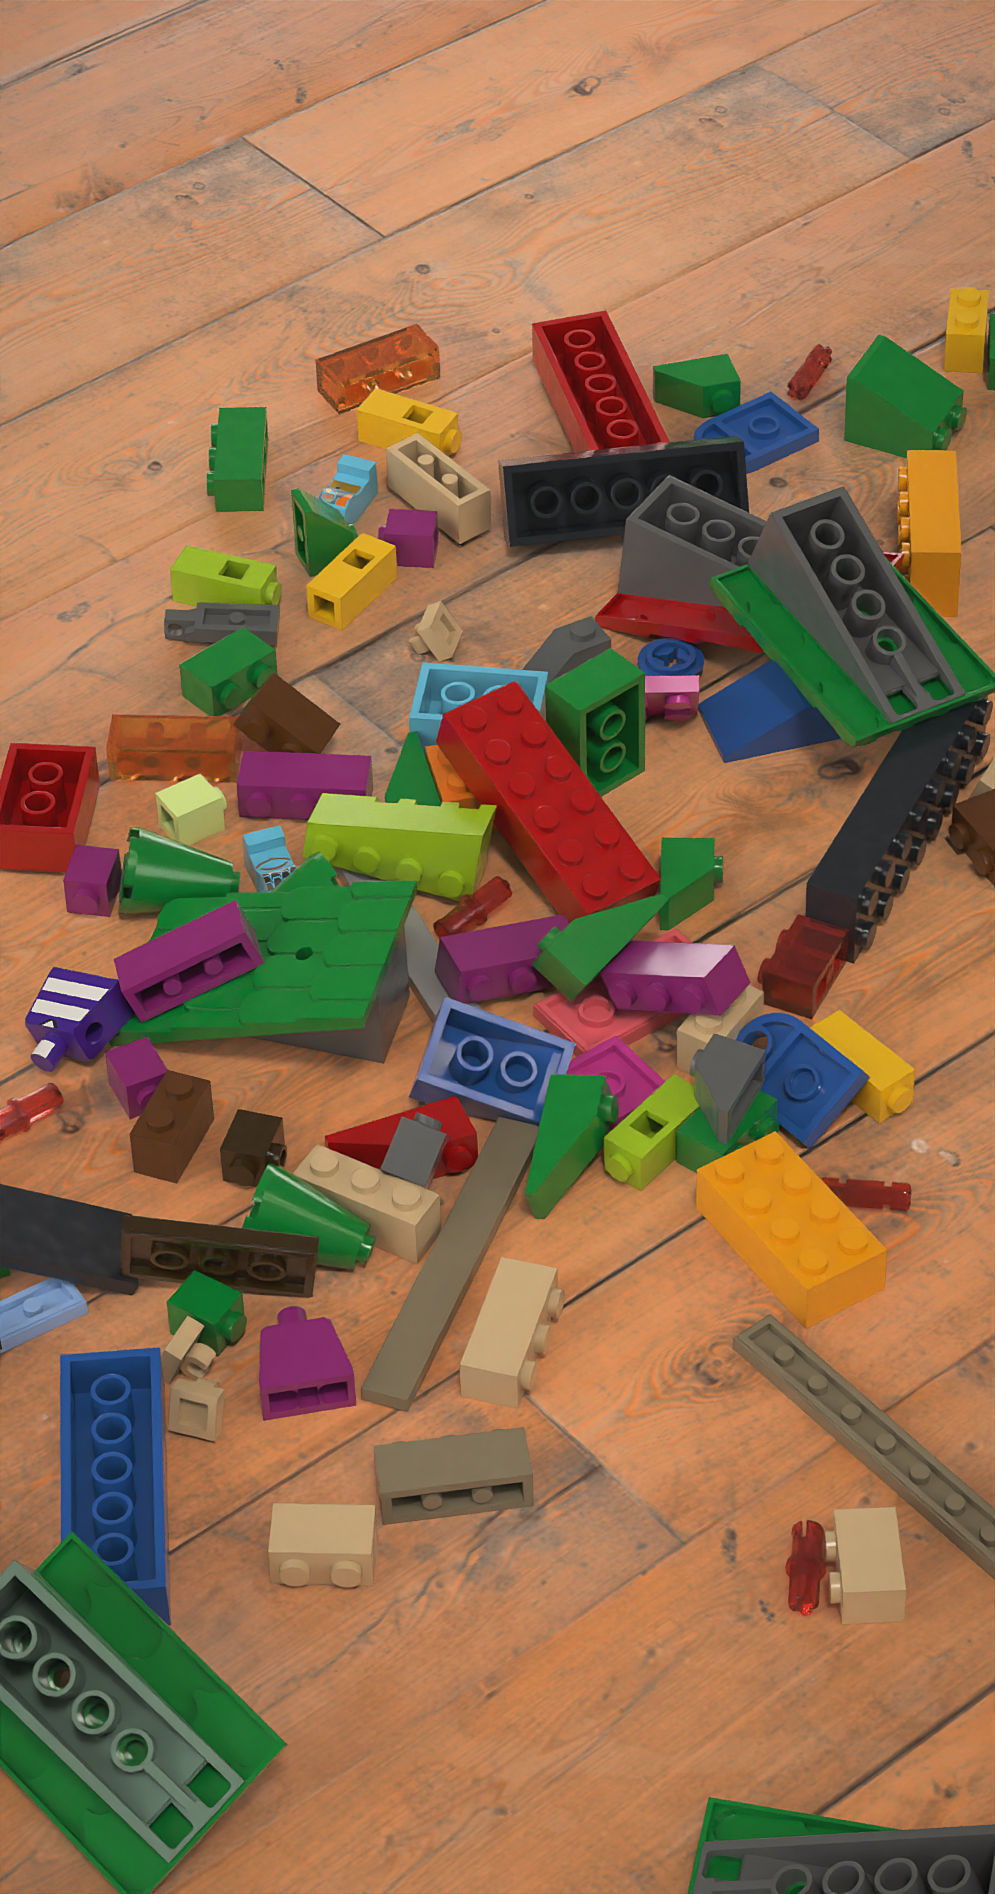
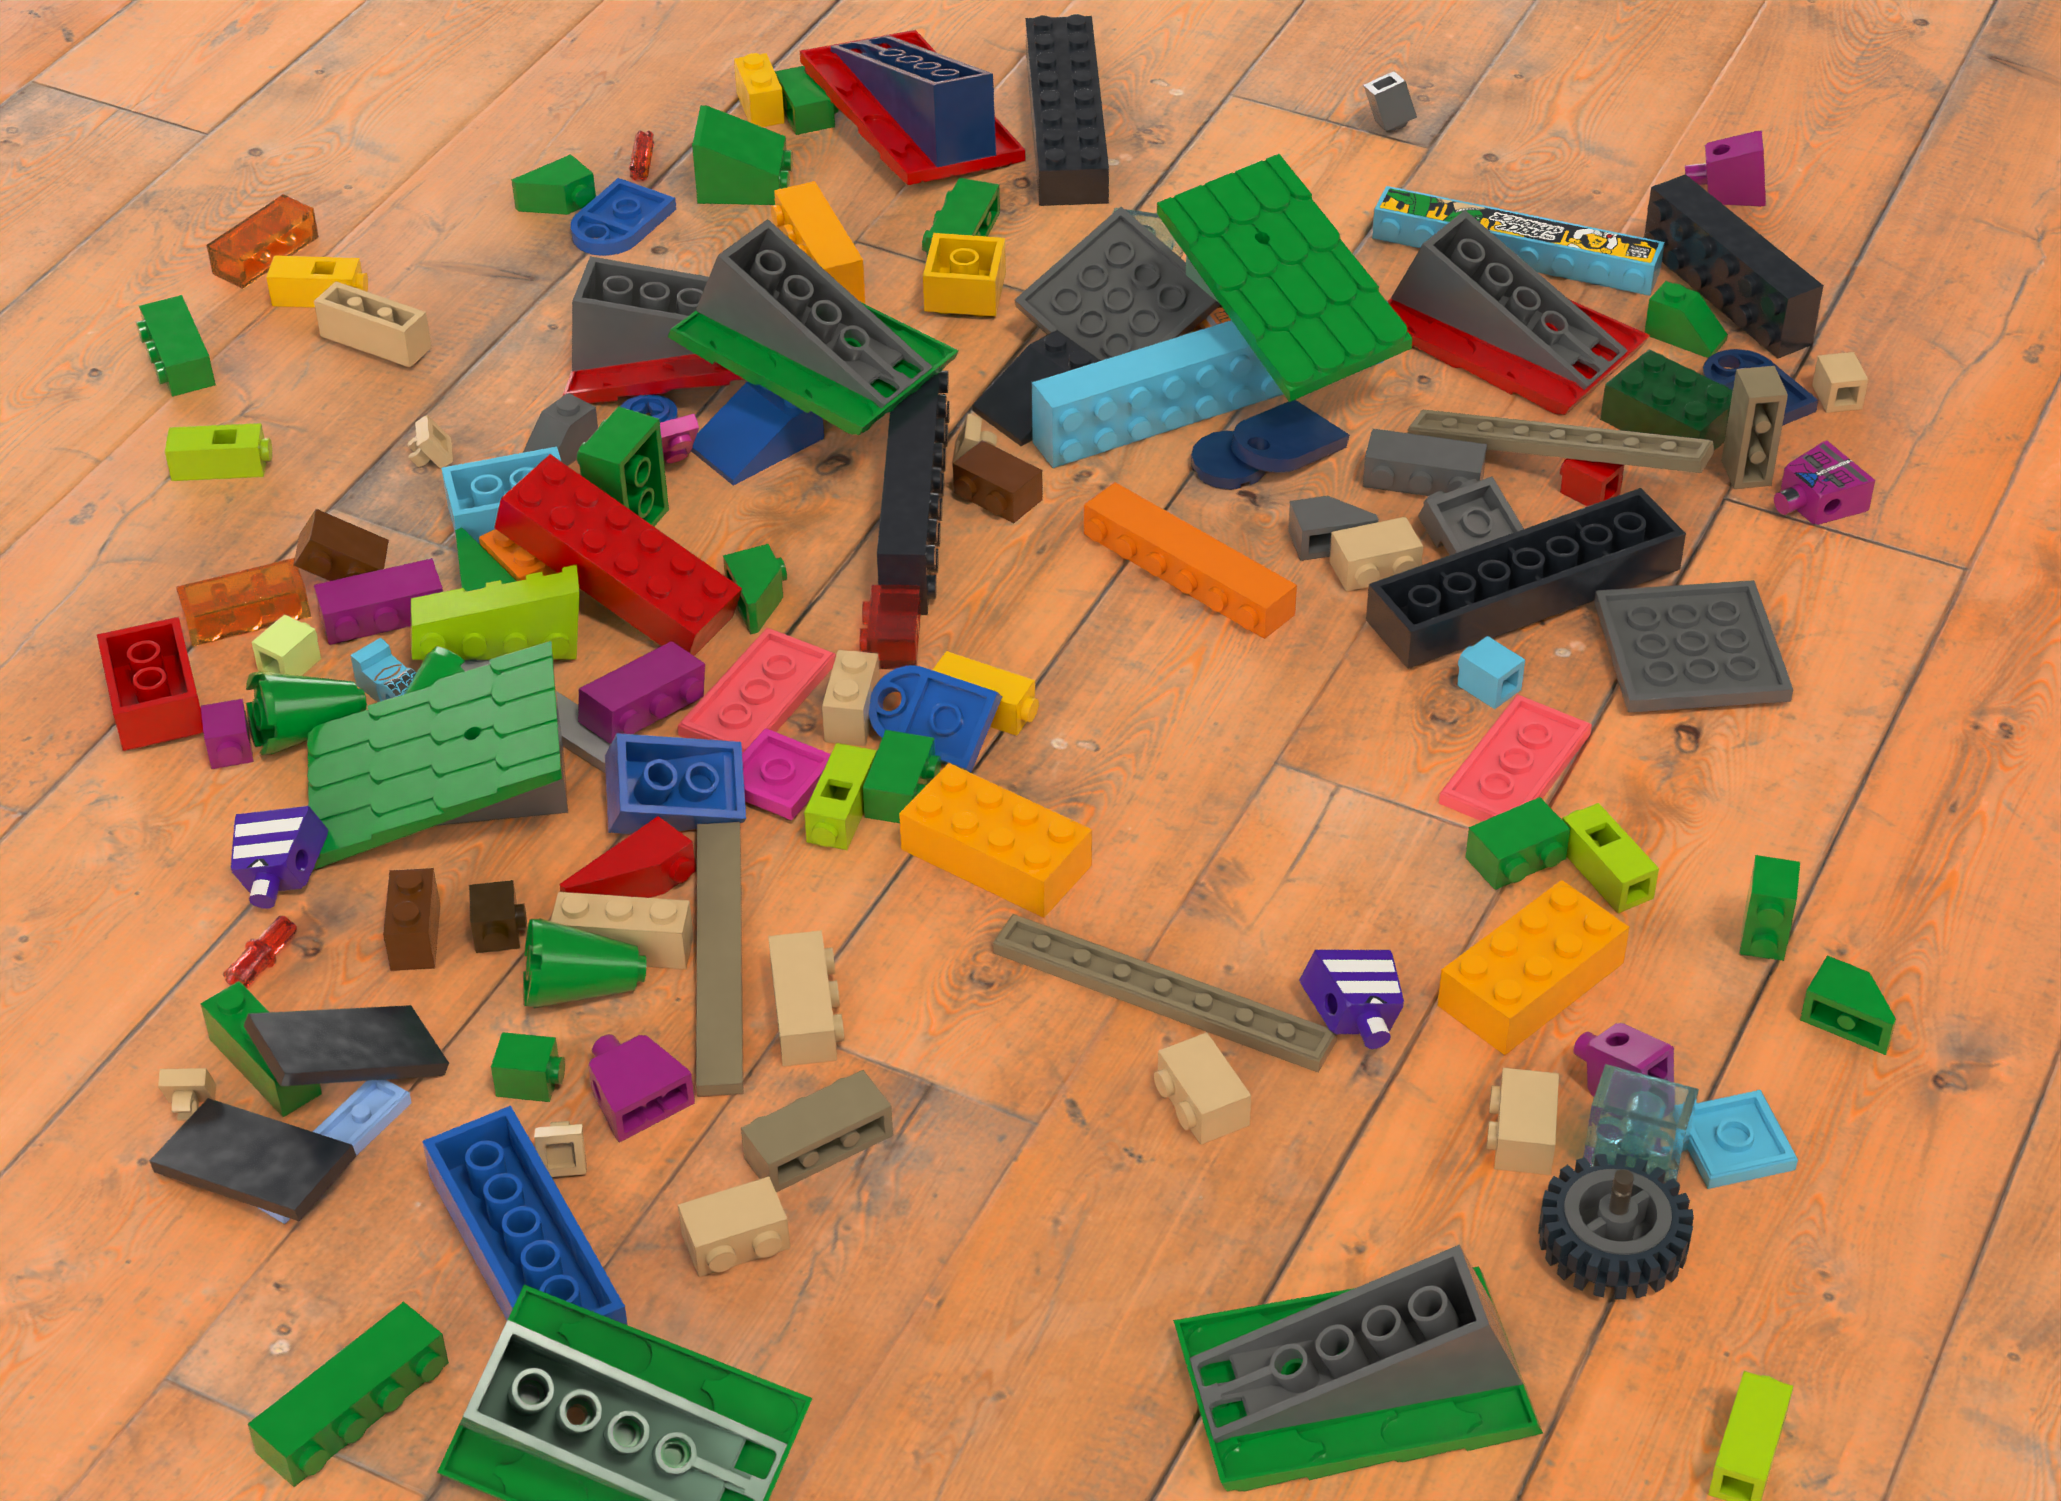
camera: 25 degrees left, 0 degrees up
(134, 1074) = (356, 887): magenta brick -> none
(187, 1354) = (529, 1107): tan tile -> none
(188, 961) = (366, 771): magenta brick -> none
(217, 620) = (233, 486): dark grey hinge -> none
(227, 672) = (260, 525): green brick -> none
(227, 1254) = (533, 1007): dark brown tile -> none
(318, 531) = (286, 390): green slope -> none
(352, 487) = (289, 348): medium azure leg -> none
(352, 581) = (332, 421): yellow brick -> none
(413, 535) = (366, 372): magenta brick -> none
(416, 1150) = (651, 868): dark grey brick -> none
(474, 908) = (583, 662): clear red axle -> none
(569, 1136) = (773, 816): green slope -> none
(590, 942) = (713, 657): green slope -> none
(593, 384) = (480, 221): red brick -> none
(599, 489) = (526, 286): black brick -> none
(675, 977) = (801, 662): magenta brick -> none
(727, 1082) = (889, 735): dark grey slope -> none
(805, 1567) = (1152, 1107): clear red axle -> none
(871, 1193) = (1047, 792): clear red axle -> none

